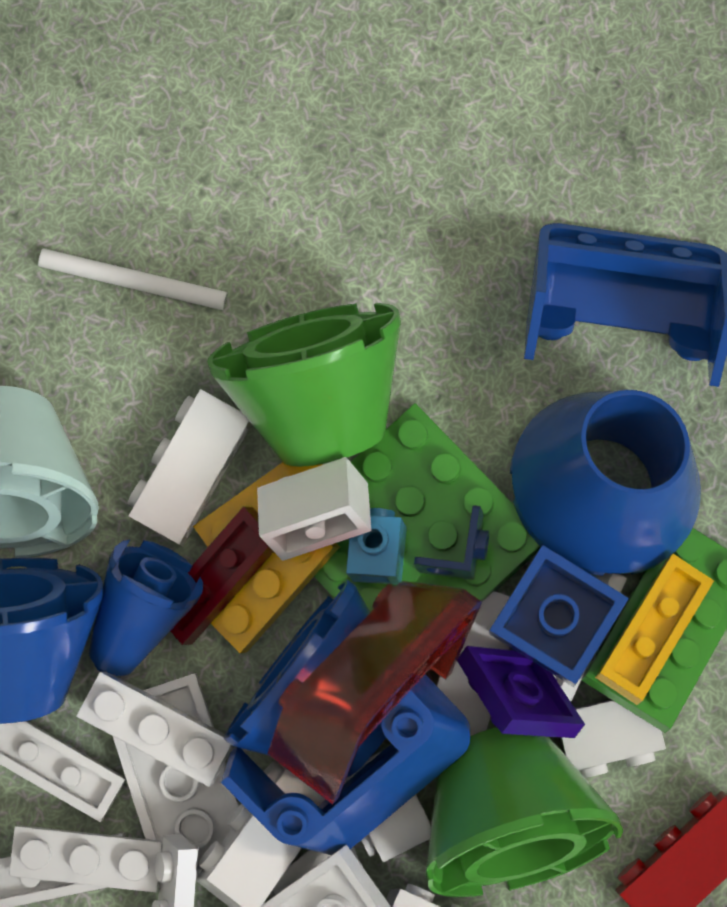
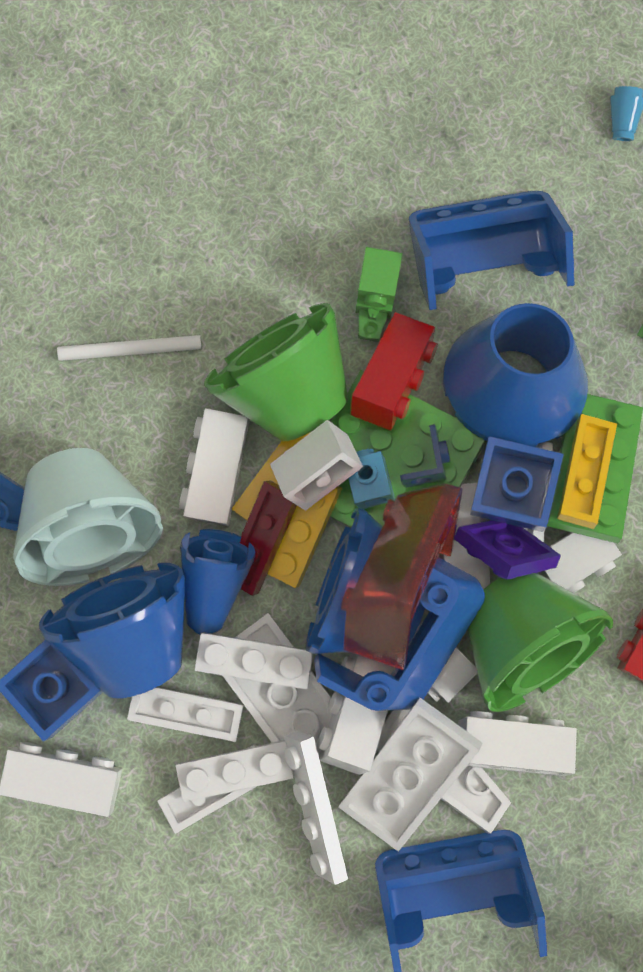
camera: 20 degrees left, 0 degrees up
(454, 421) = (394, 371): none -> red brick
(466, 312) = (377, 291): none -> bright green hinge

